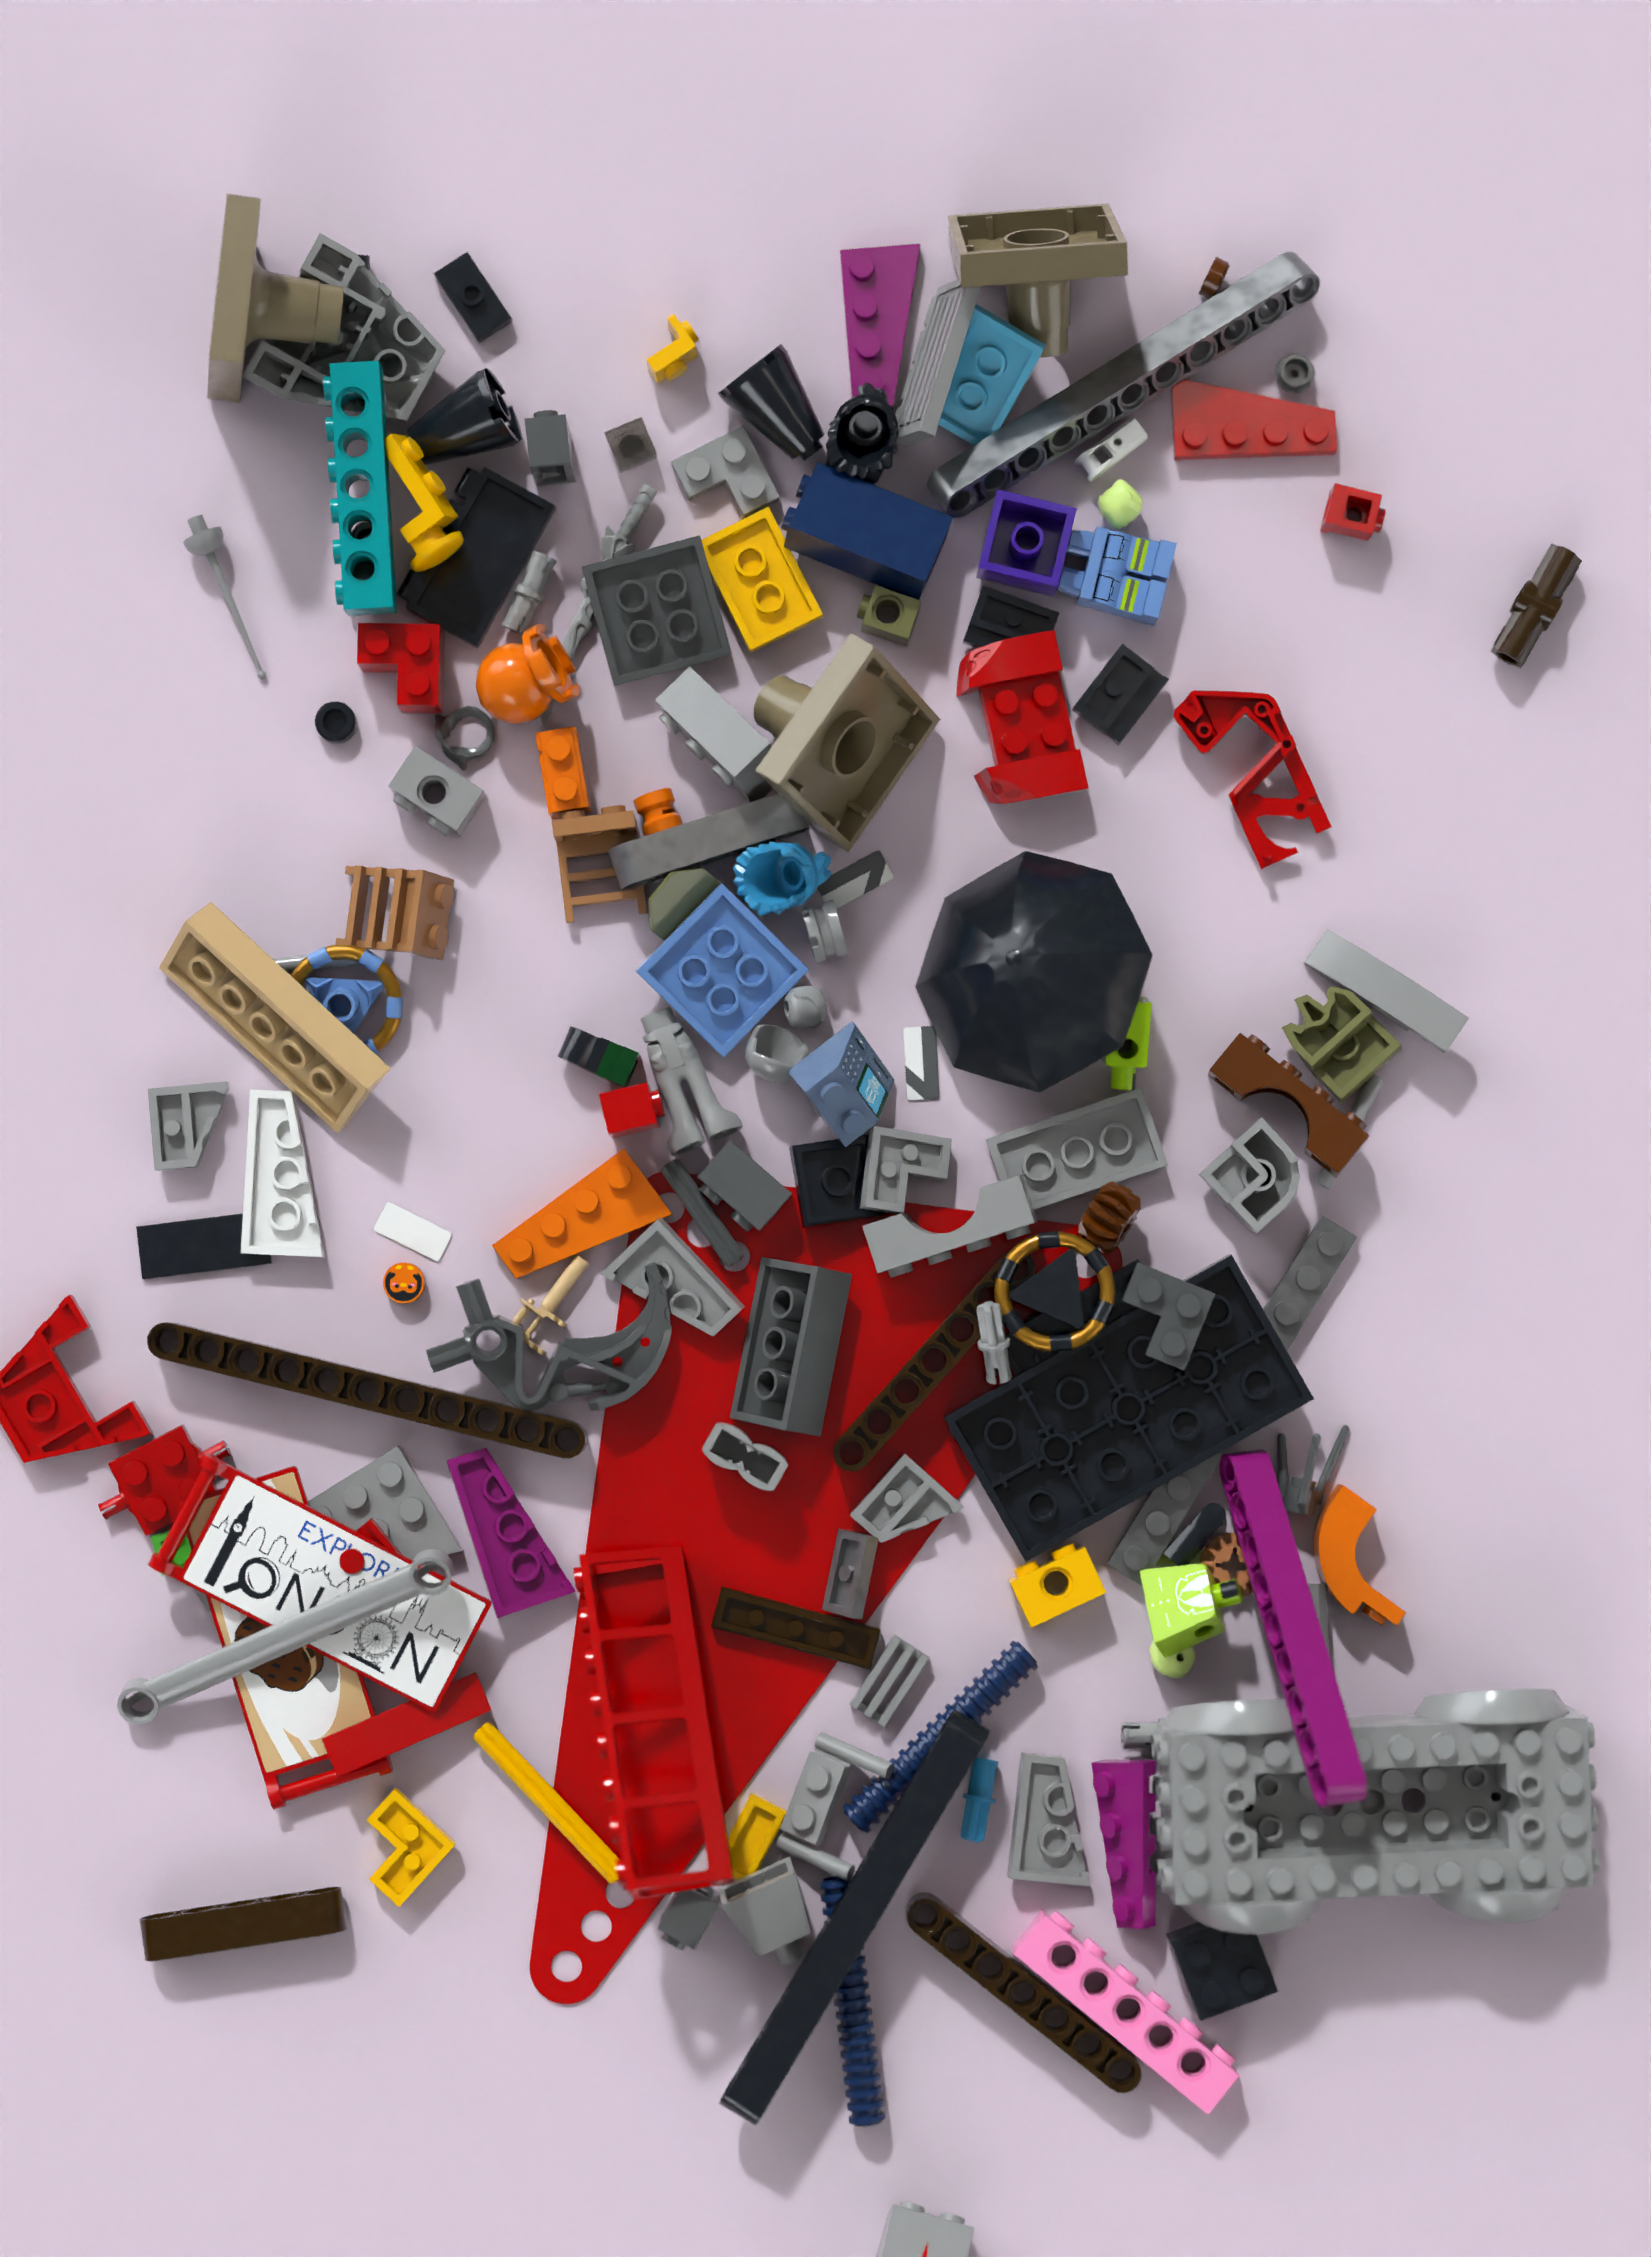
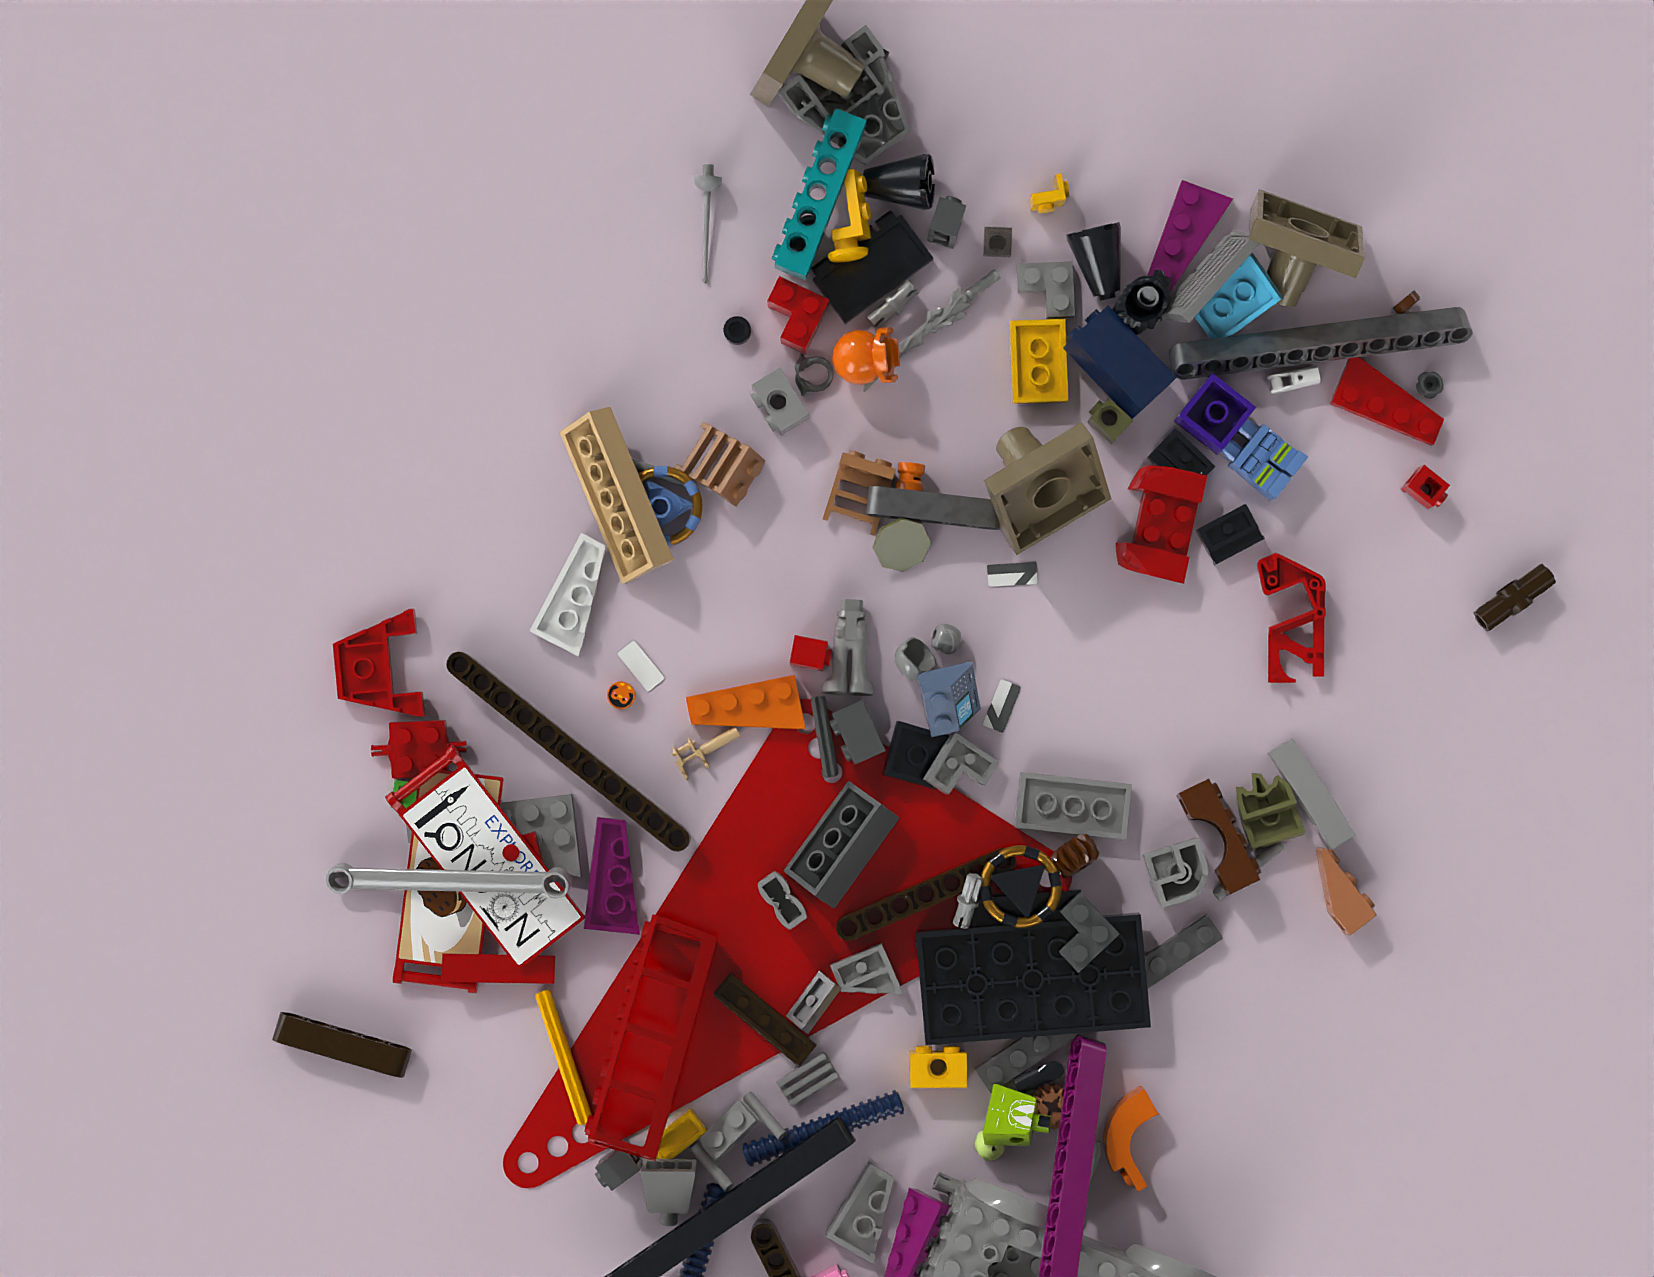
camera: 25 degrees right, 0 degrees up
(183, 1122) = (531, 534): light grey wing -> none
(194, 1247) = (502, 613): black piece -> none
(418, 1846) = (471, 1044): yellow plate -> none
(473, 297) = (941, 106): black plate -> none
(505, 1363) = (661, 773): dark grey piece -> none
(563, 771) = (863, 424): orange brick -> none
(599, 1056) = (805, 611): leg -> none
(656, 610) = (966, 351): dark grey plate -> none
(690, 1285) = (789, 769): light grey wing -> none
(716, 733) = (969, 445): light grey wedge -> none
(722, 970) = (905, 592): medium blue plate -> none
(779, 876) = (967, 550): dark azure hair -> none
(824, 931) = (979, 597): light grey wheel -> none
(978, 1799) = (829, 1178): dark azure axle -> none
(1000, 1209) = (938, 811): light grey arch -> none
(1034, 971) = (1098, 682): black piece -> none
(1120, 504) = (1284, 416): yellowish green piece -> none
(1124, 1064) = (1139, 737): lime torso -> none
(1301, 1494) = (1117, 1082): dark grey plant -> none
(1492, 1112) = (1342, 899): none -> nougat slope

